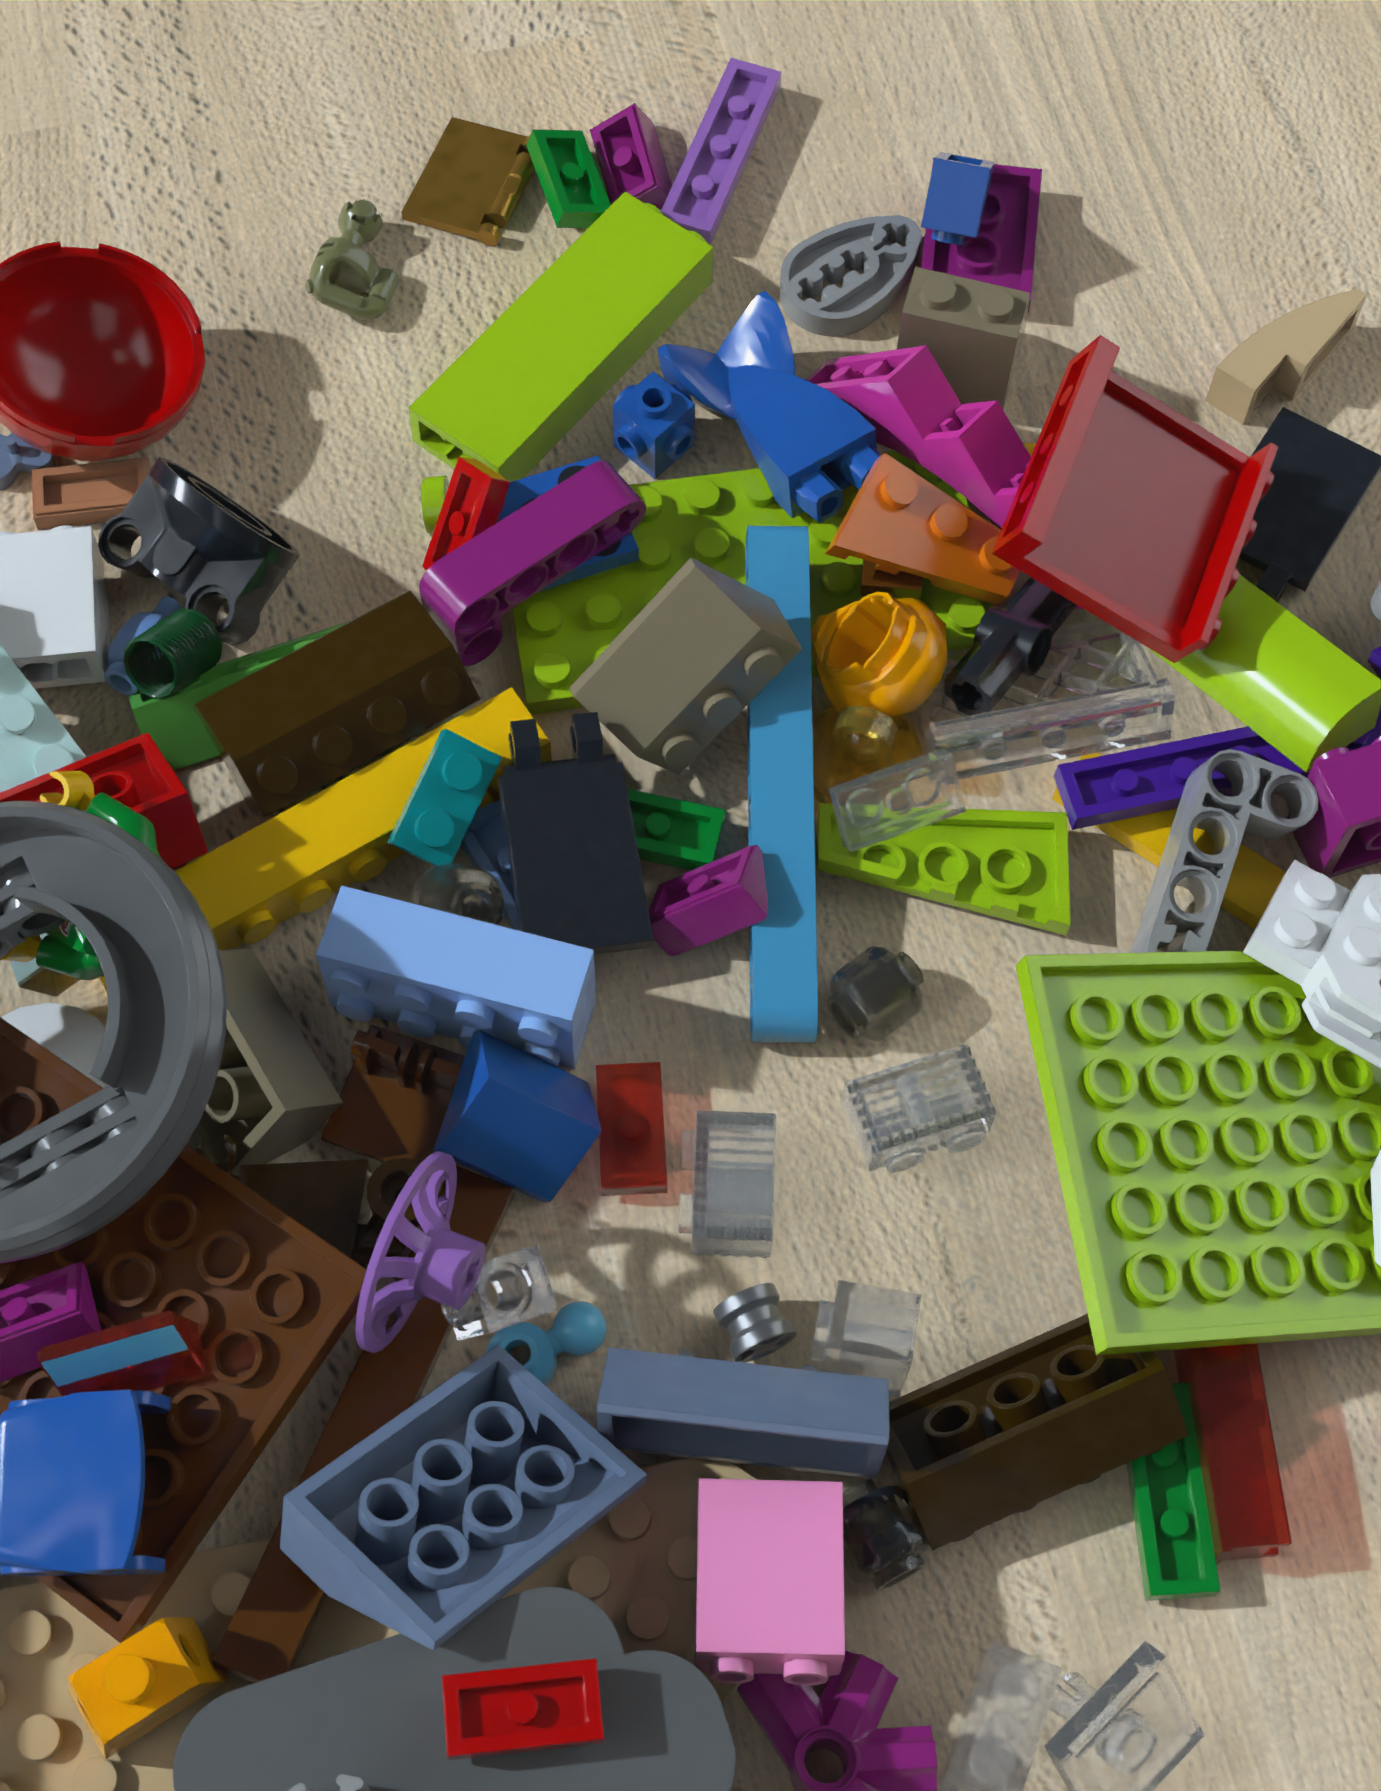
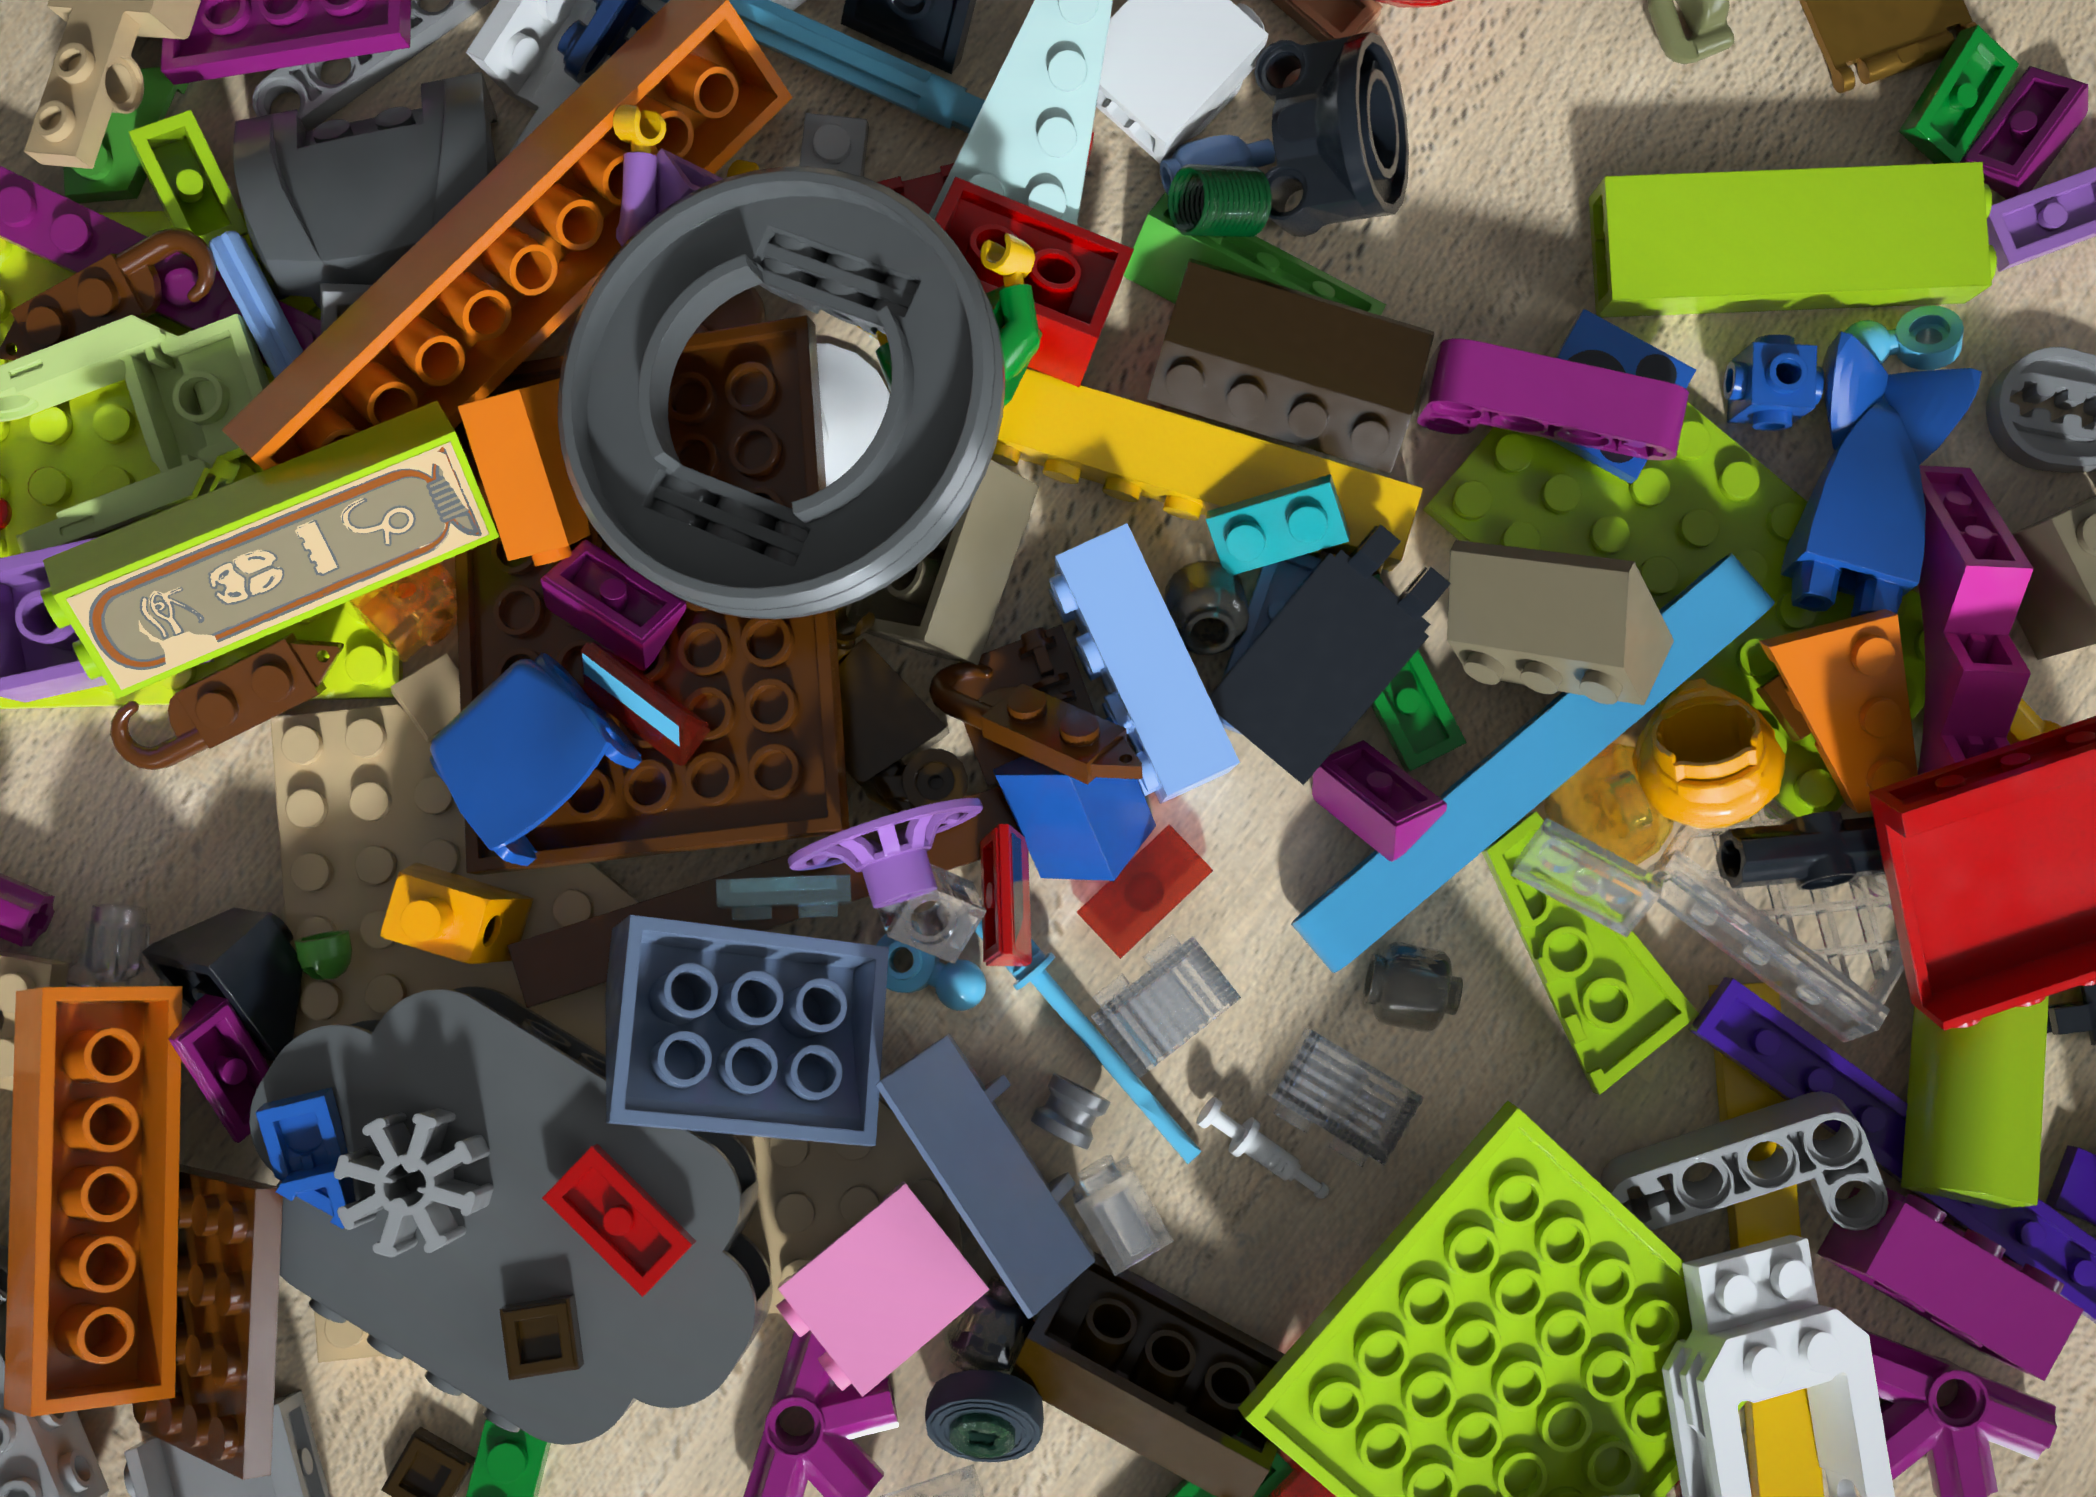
camera: 50 degrees right, 20 degrees up
(365, 1406) = (754, 897): none -> clear light blue plate
(430, 1080) = (1039, 726): none -> reddish brown plate
(432, 498) = (1540, 276): lime tile -> none
(469, 507) = (1544, 315): red plate -> none
(536, 1223) = (1005, 898): none -> red slope
(607, 1262) = (1100, 1048): none -> medium azure piece
(709, 317) = (1922, 339): none -> medium azure plate
(896, 1208) = (1250, 1141): none -> white piece
(946, 1592) = (984, 1416): none -> black wheel

